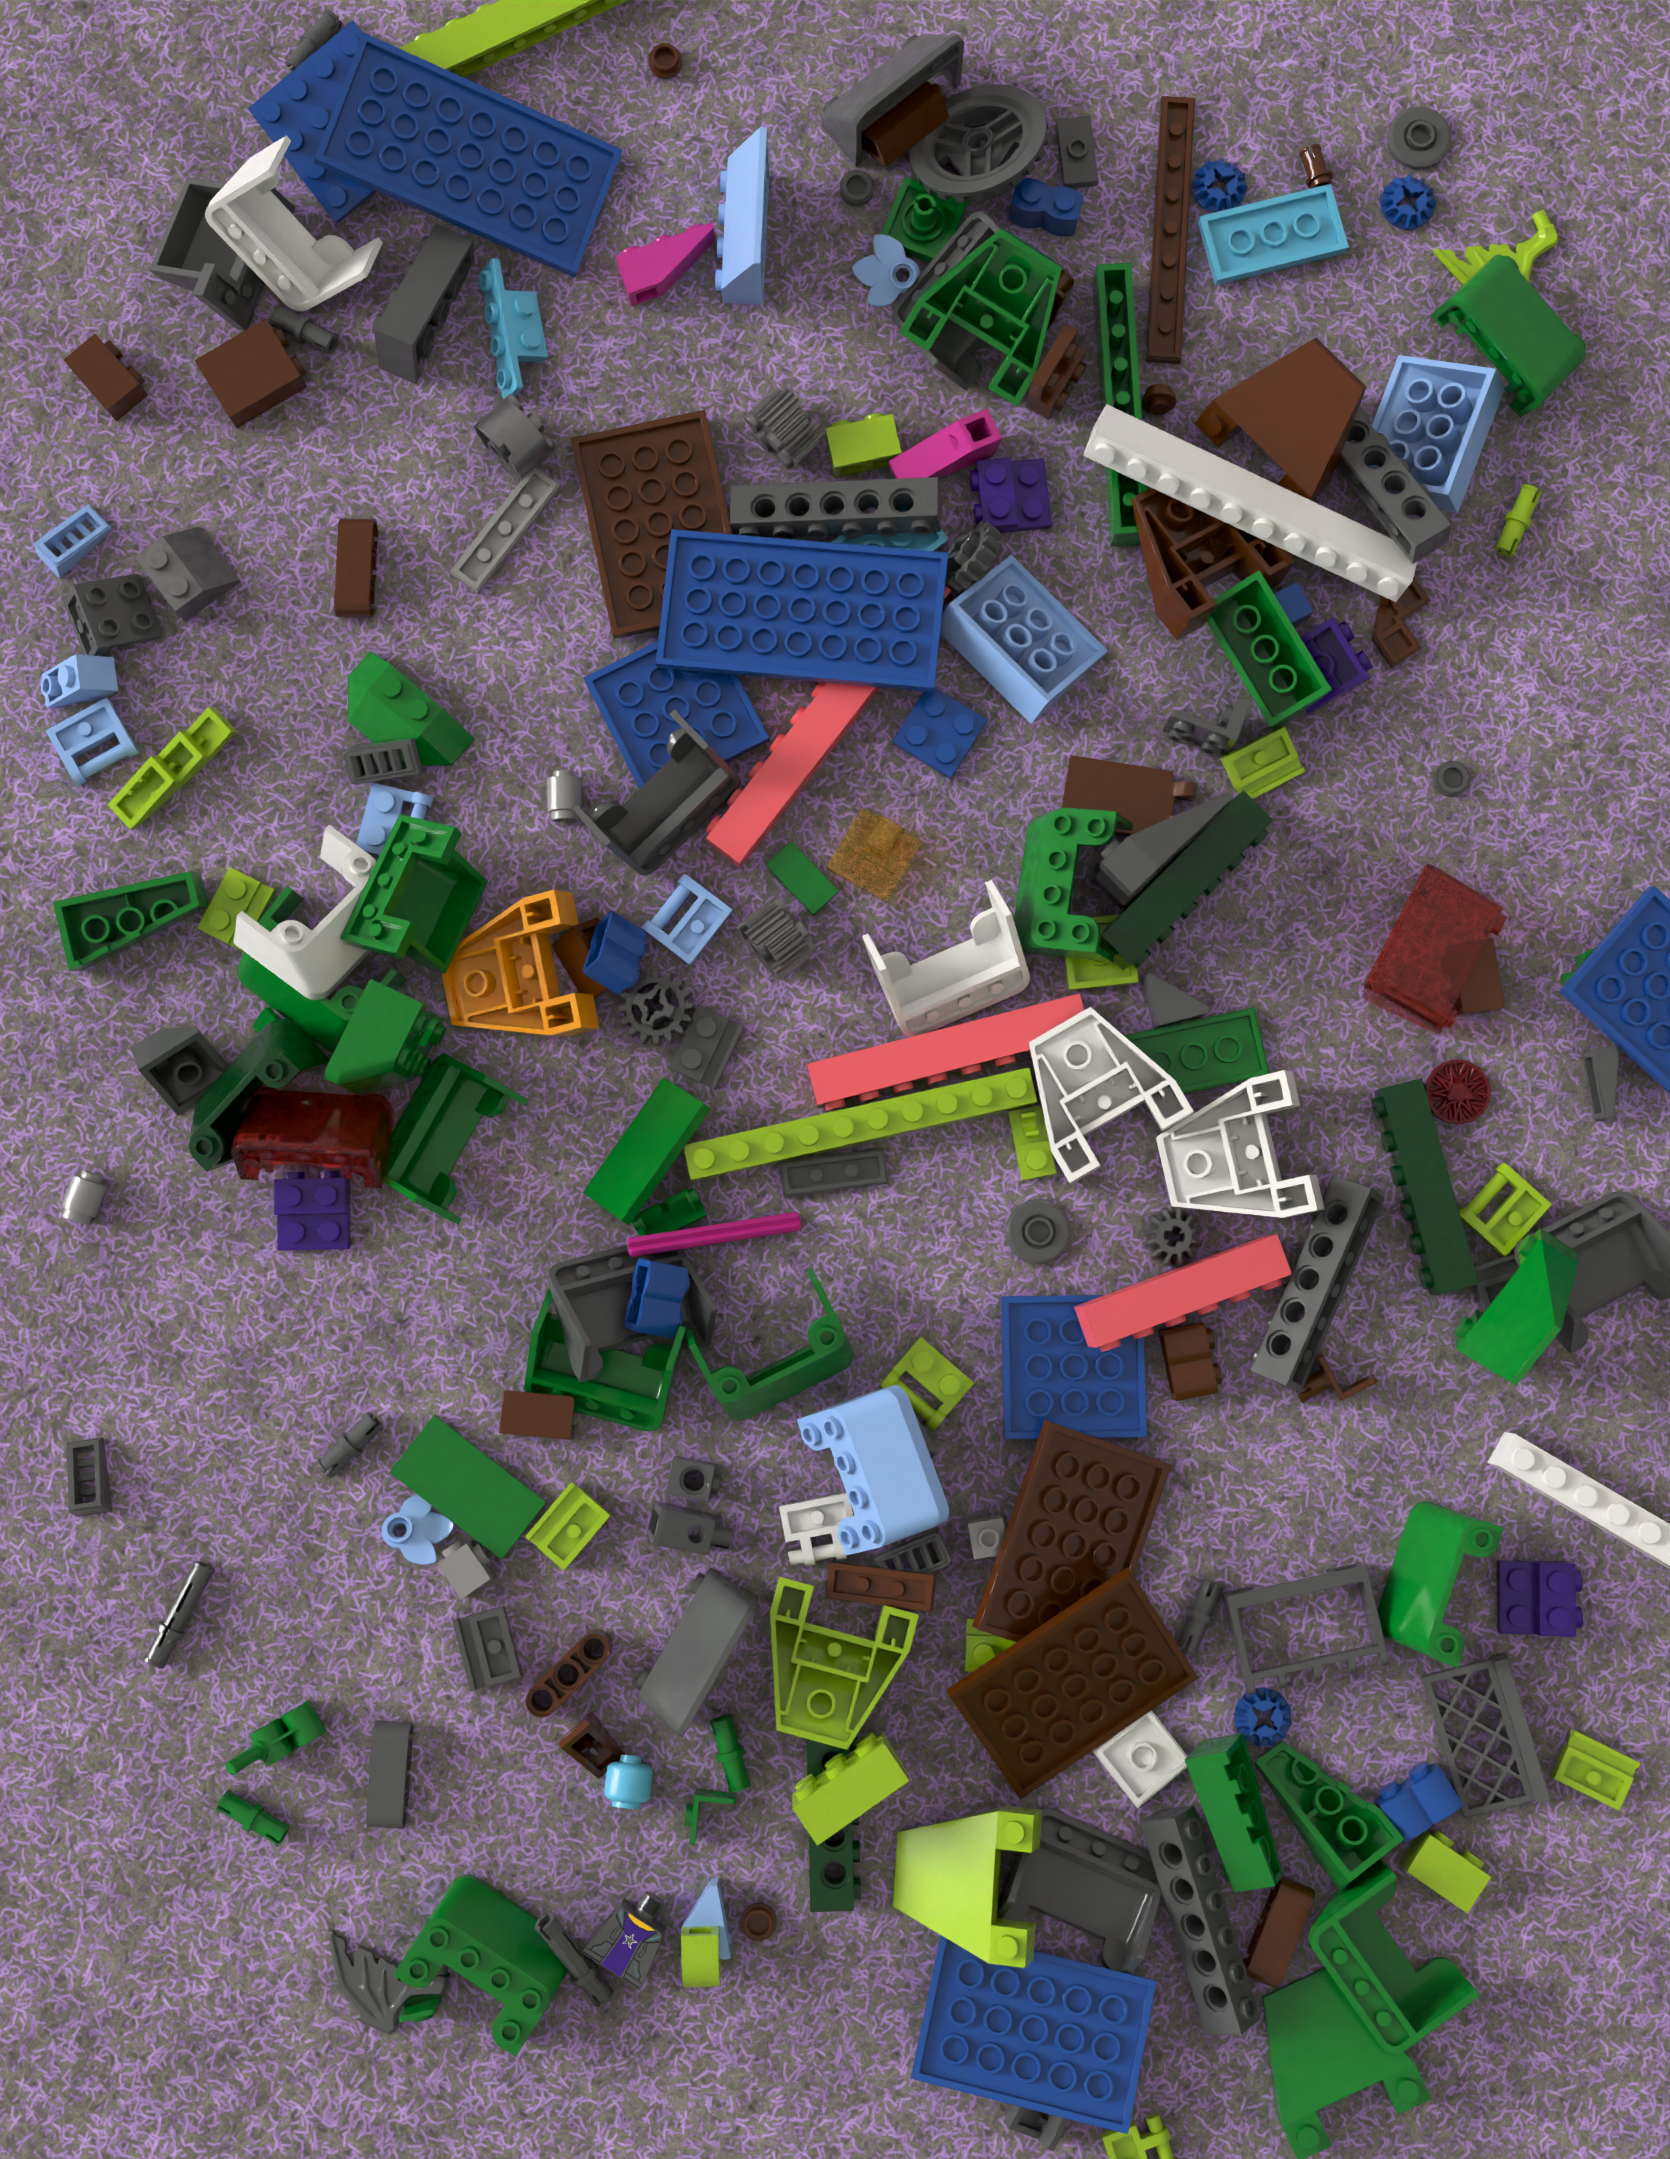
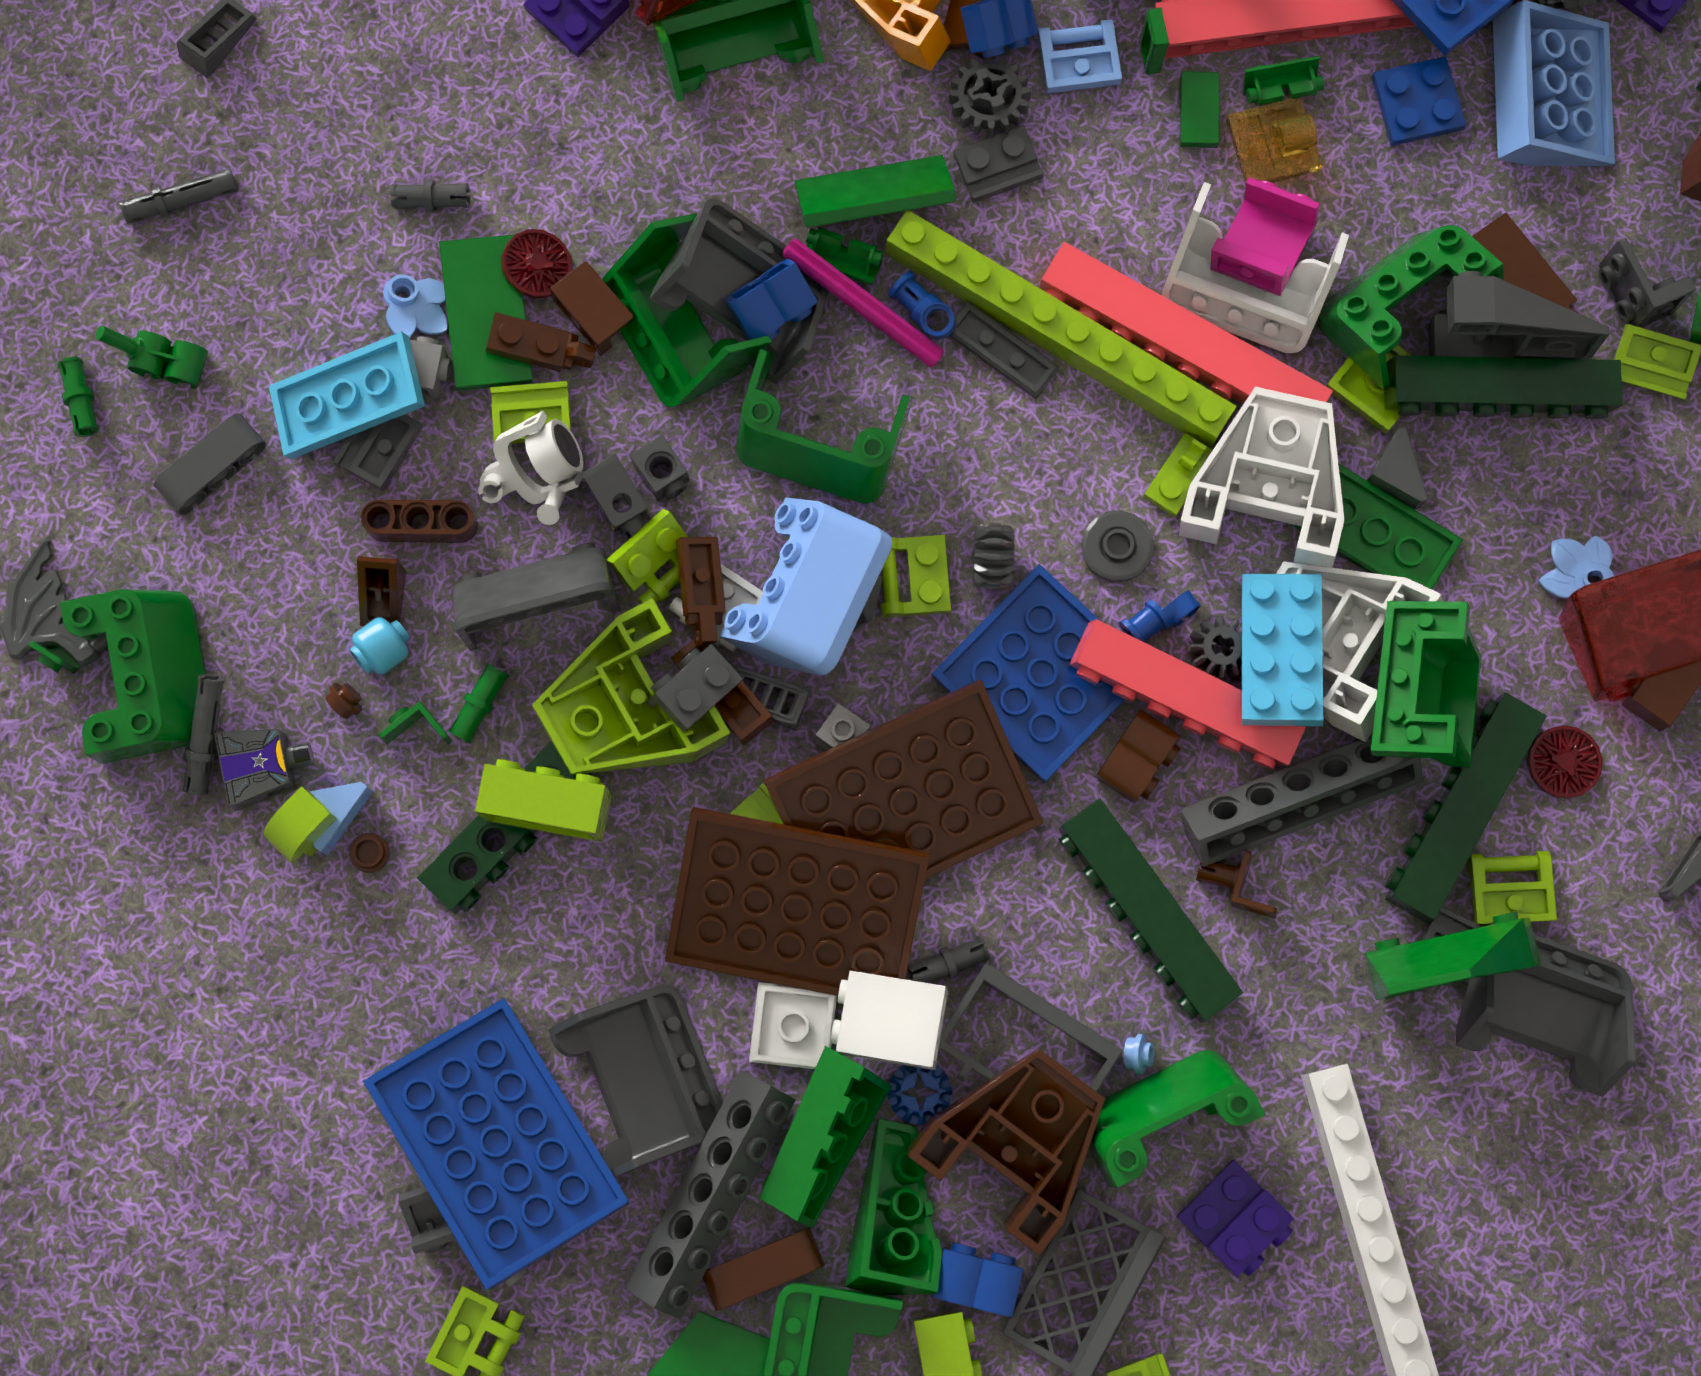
camera: 45 degrees right, 5 degrees down
(437, 1641) = (346, 395): none -> medium azure plate
(468, 1420) = (535, 262): none -> dark red wheel
(525, 1476) = (537, 344): none -> reddish brown hinge
(616, 1545) = (553, 455): none -> white piece
(640, 1840) = (344, 700): none -> reddish brown plate
(731, 866) = (1153, 41): none -> green tile
(742, 1544) = (646, 553): none -> lime plate
(754, 1196) = (924, 307): none -> blue connector
(776, 938) = (1135, 127): flat silver brick -> none
(801, 1534) = (701, 586): none -> reddish brown hinge
(847, 793) = (1266, 82): none -> green hinge
(867, 1609) = (695, 688): none -> dark grey bracket
(933, 928) = (1266, 237): none -> dark pink panel
(952, 1875) = (551, 964): lime wedge -> none
(969, 1322) = (993, 556): none -> dark grey gear
(1109, 1261) = (1155, 618): none -> blue connector
(1206, 1698) = (890, 1020): none -> white brick
(1216, 1204) = (1282, 650): none -> medium azure plate
(1294, 1455) = (1150, 912): none -> dark green brick
(1334, 1141) = (1427, 683): none -> green windscreen
(1341, 953) = (1576, 564): none -> light blue plate
(1358, 1678) = (1030, 1128): none -> reddish brown wedge
(1376, 1554) = (1138, 1053): none -> light blue plate

